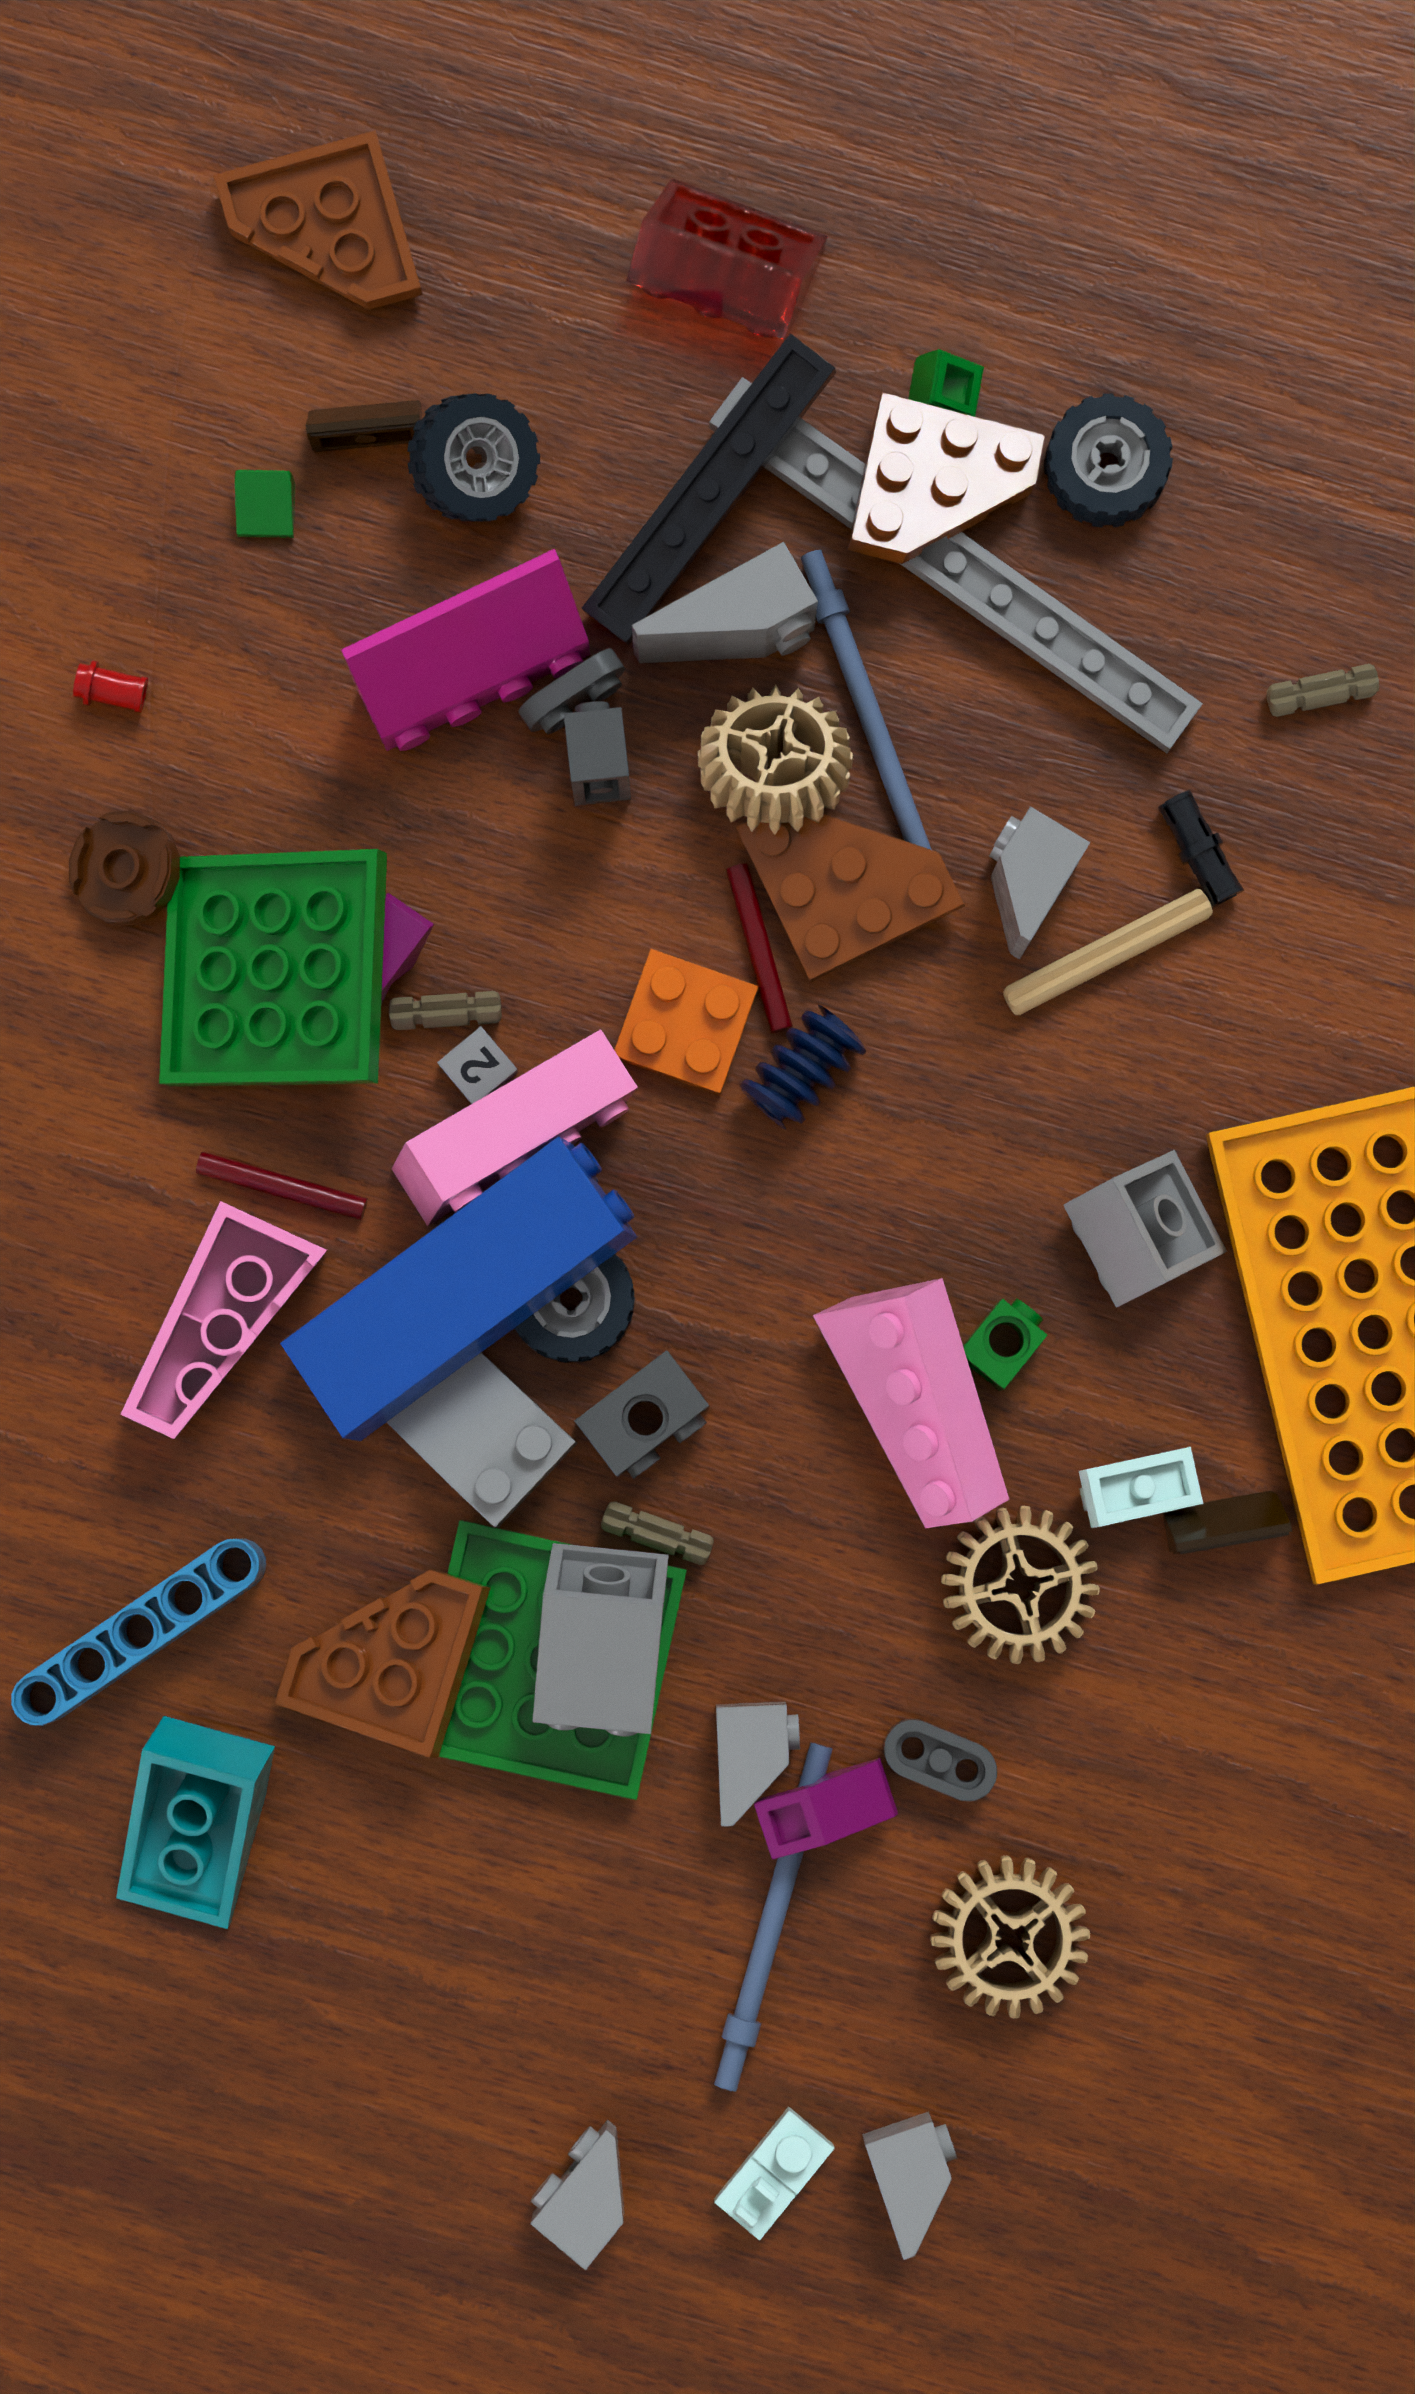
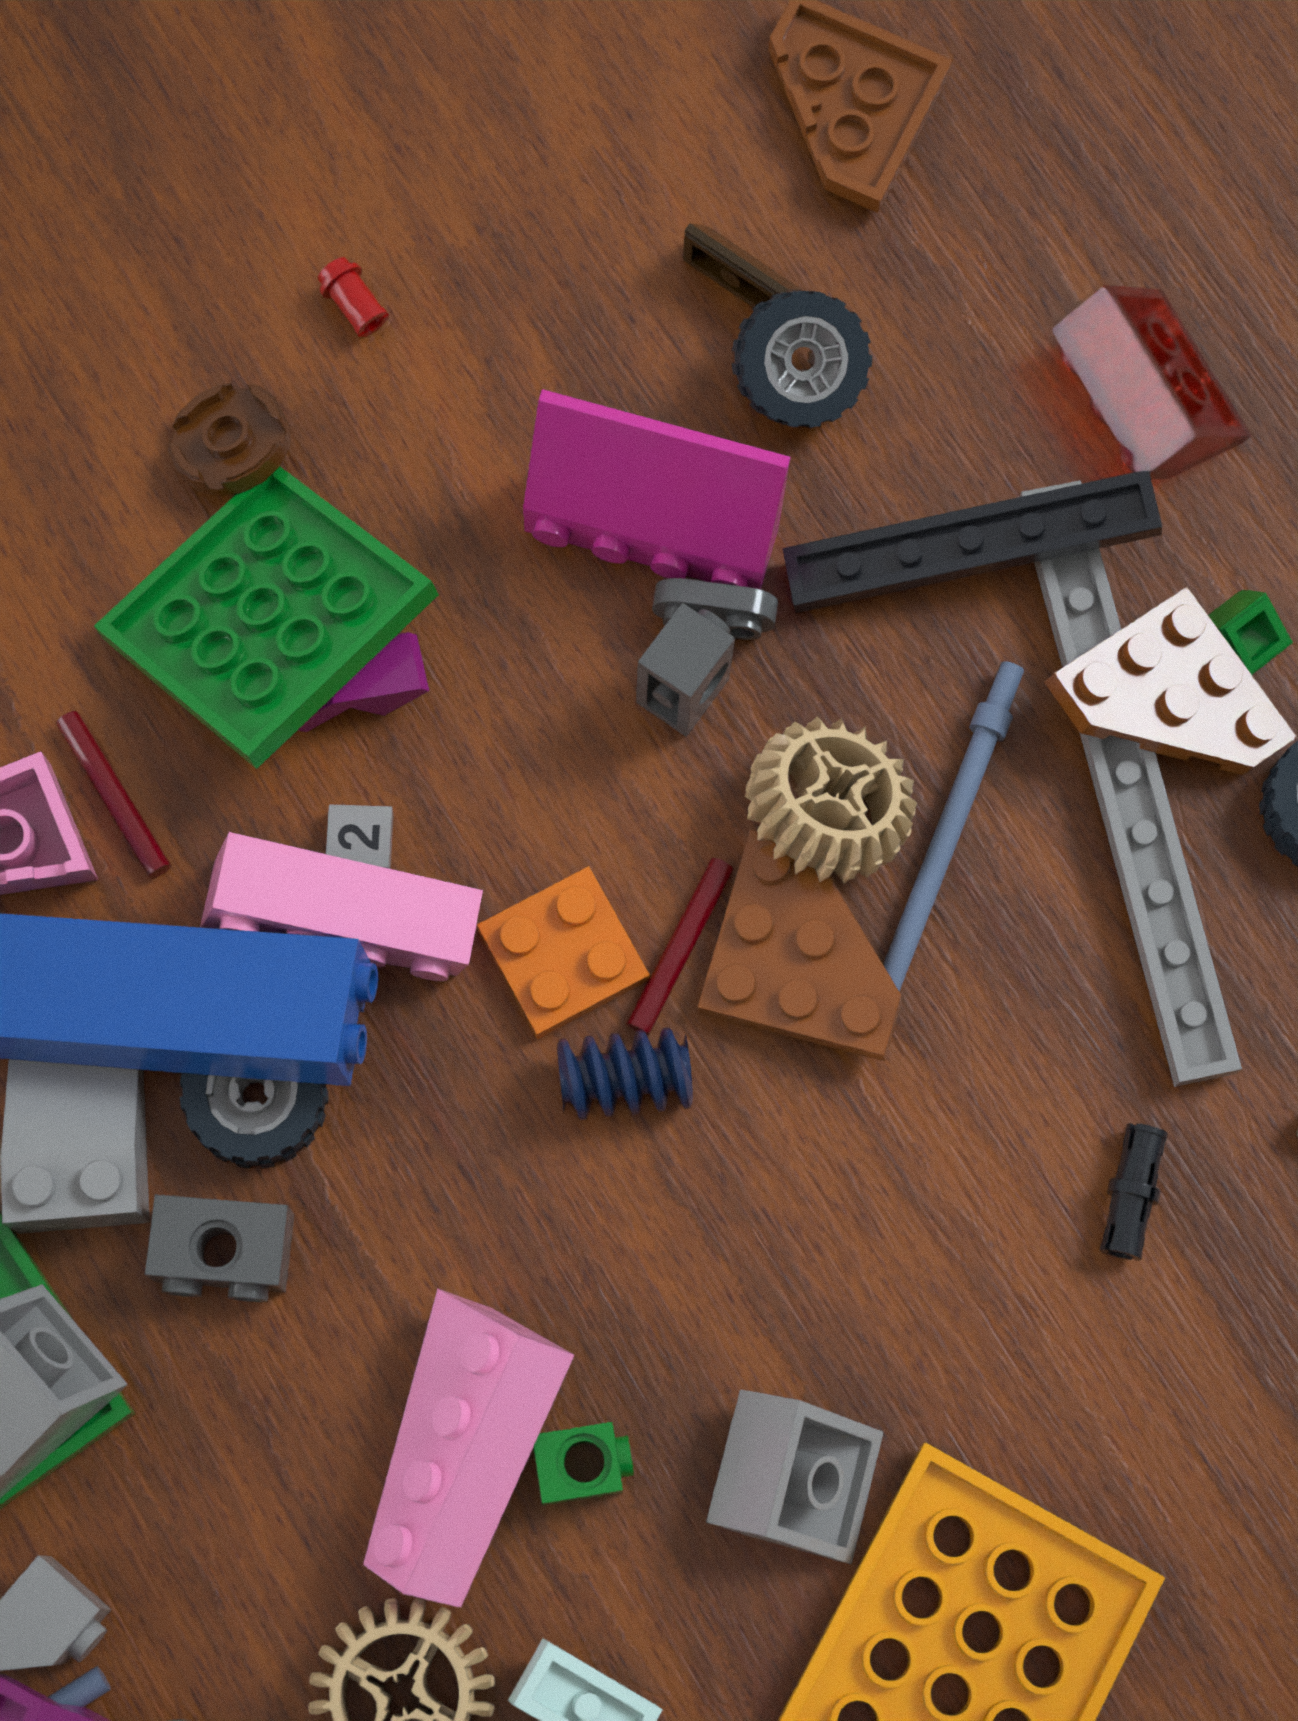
camera: 40 degrees right, 10 degrees down
(265, 503) = (606, 262): green slope -> none
(445, 1010) = (376, 770): dark tan axle -> none
(657, 1533) = (140, 1359): dark tan axle -> none
(737, 616) = (902, 654): light grey slope -> none
(1030, 872) = (968, 1081): light grey slope -> none
(1107, 952) = (975, 1209): tan axle -> none

